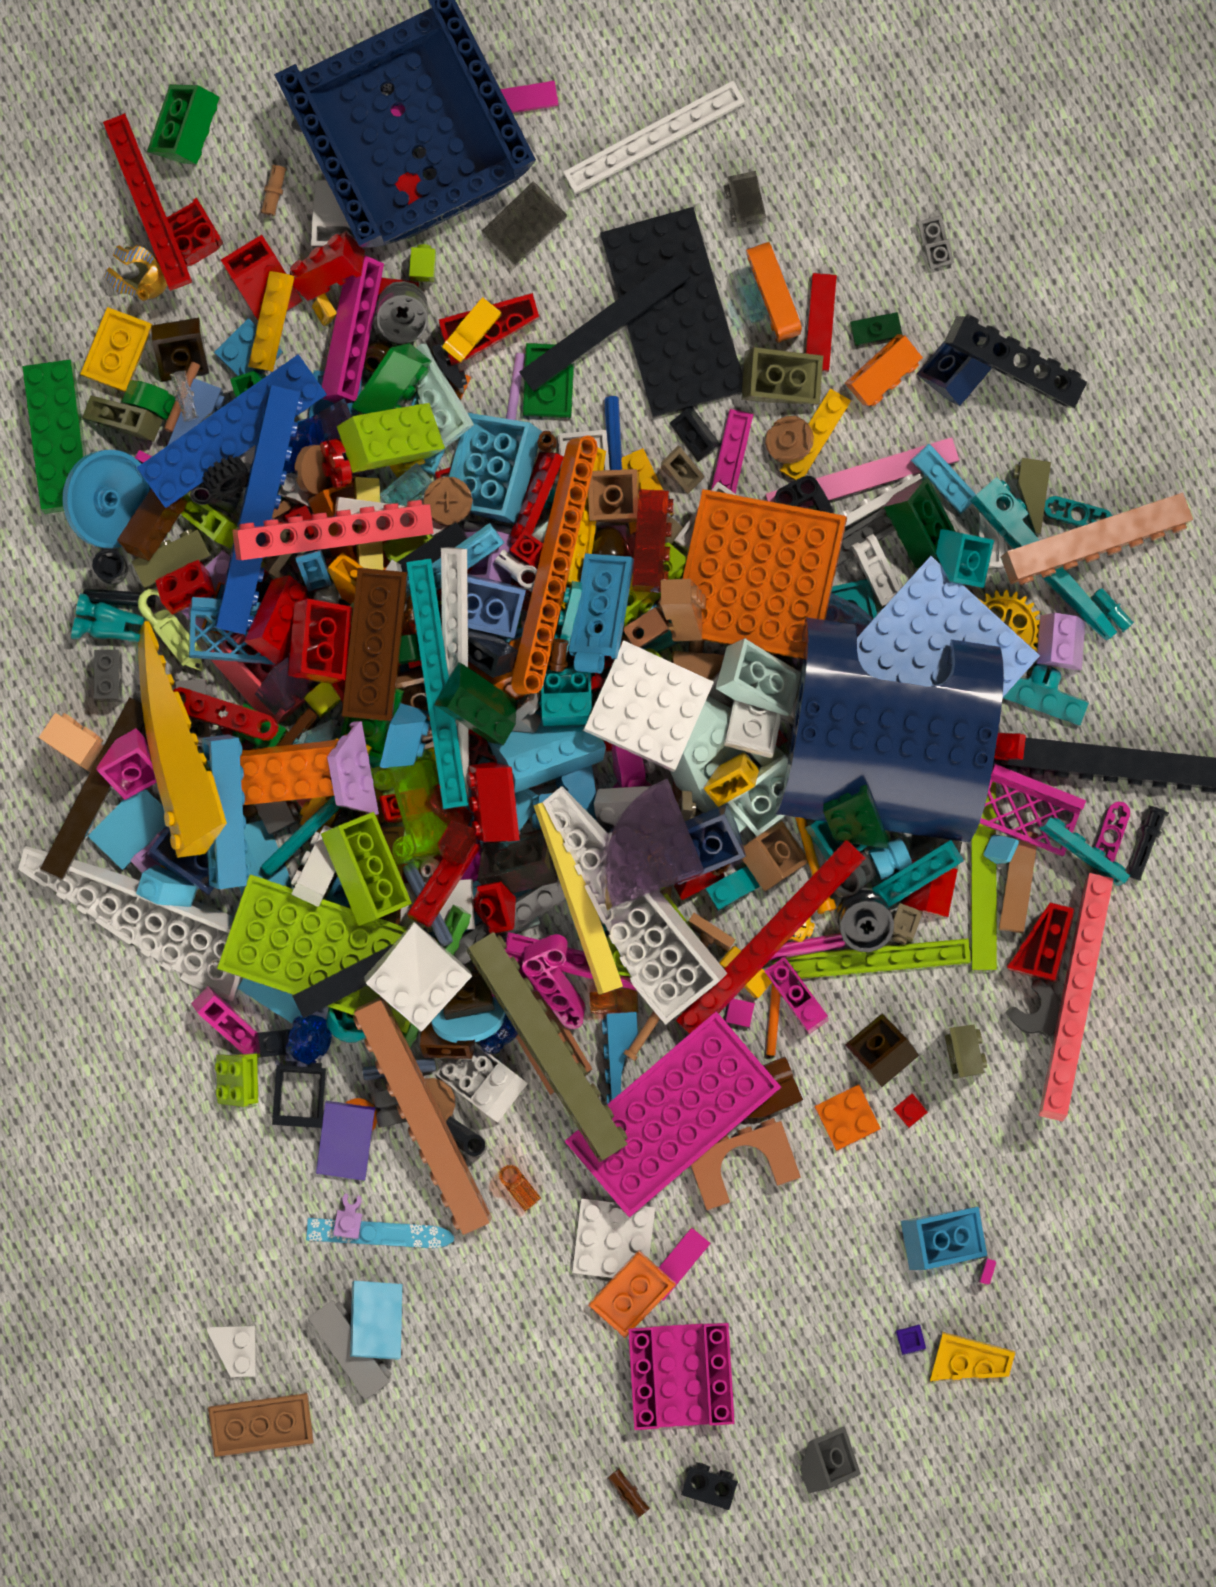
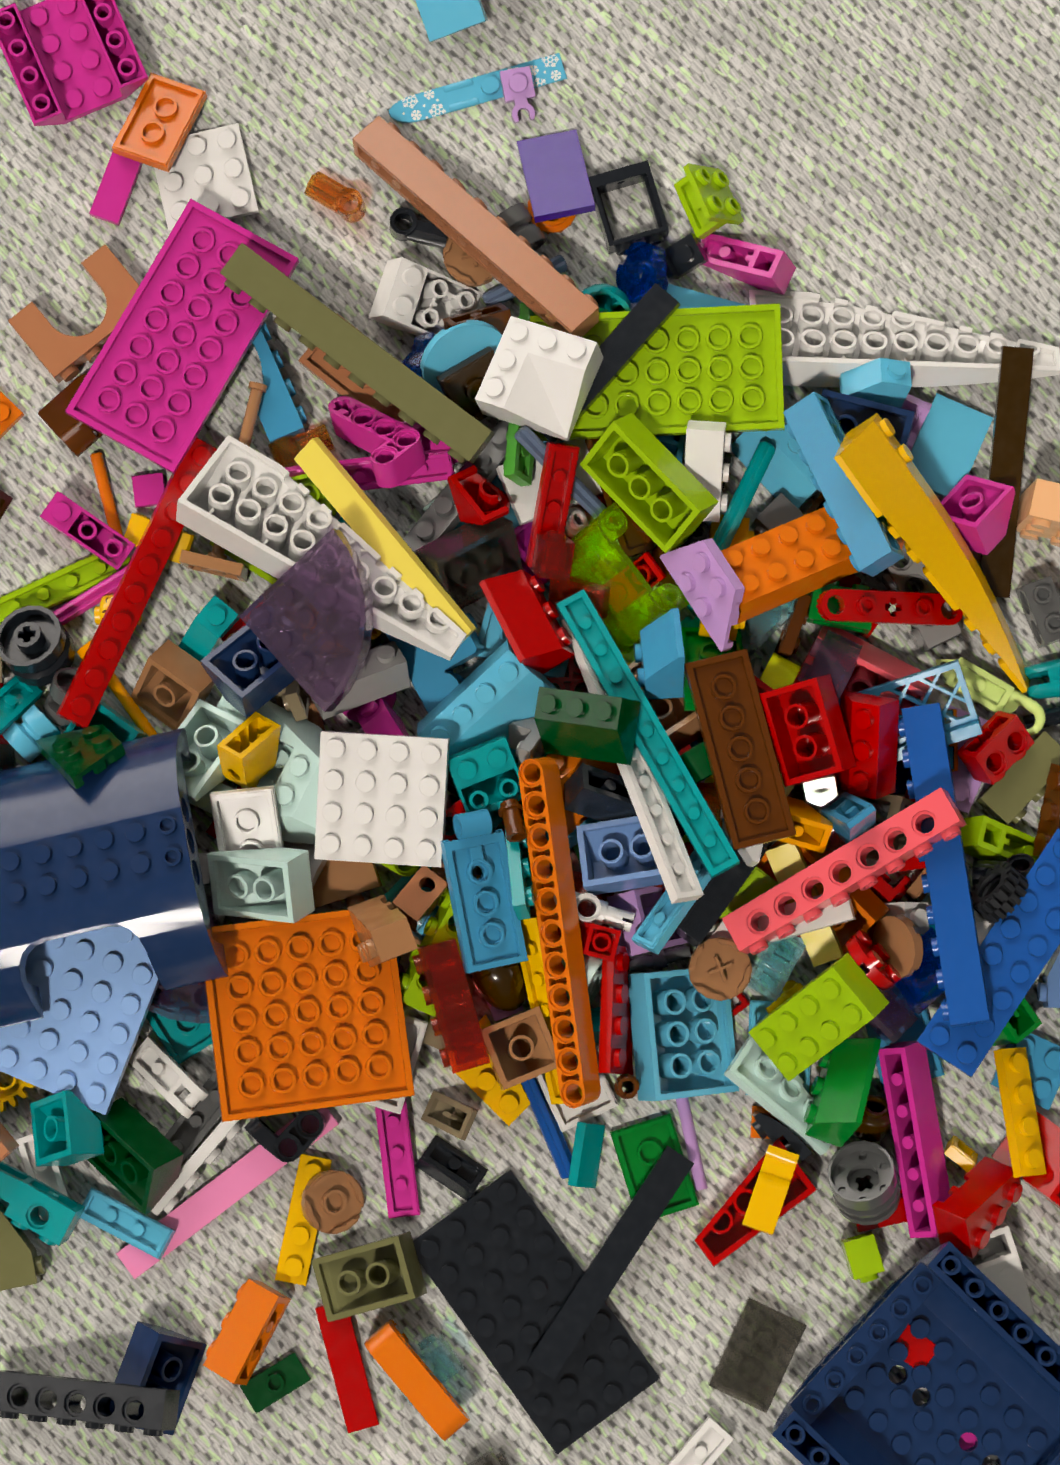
camera: 155 degrees right, 0 degrees up
(594, 406) = (586, 1155): none -> teal tile

